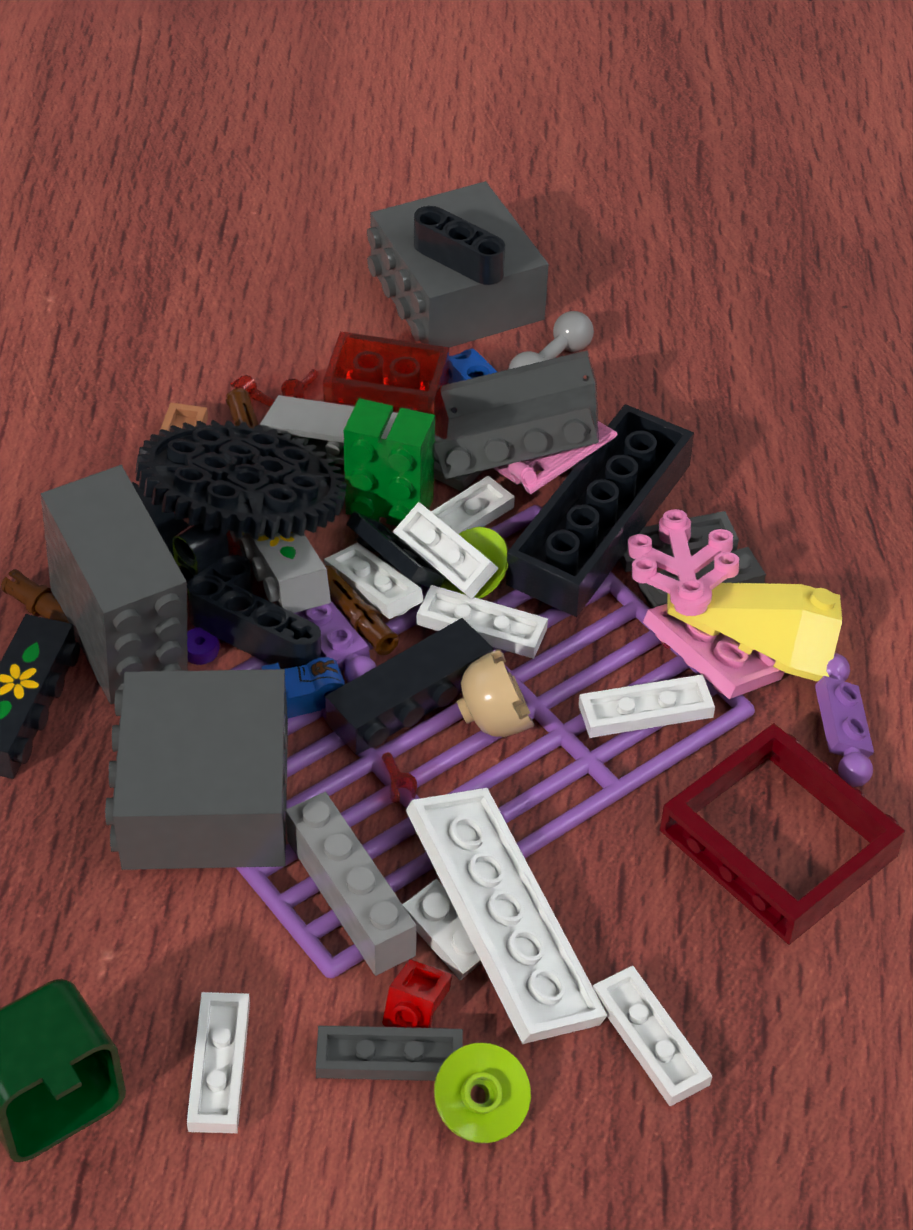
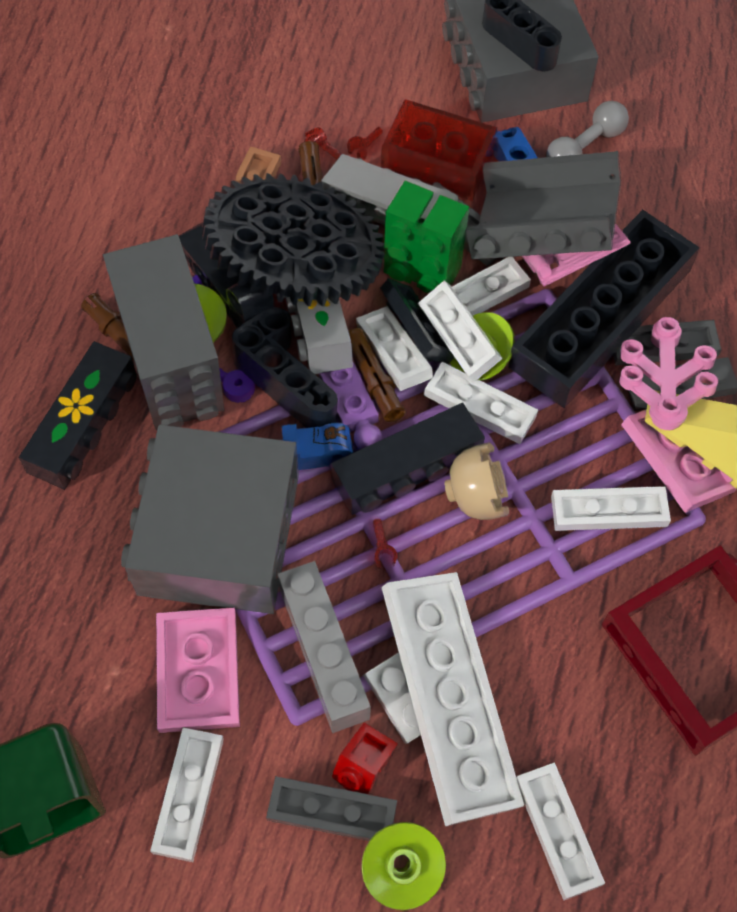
camera: 10 degrees right, 15 degrees up
(207, 934) = (197, 670): none -> bright pink plate

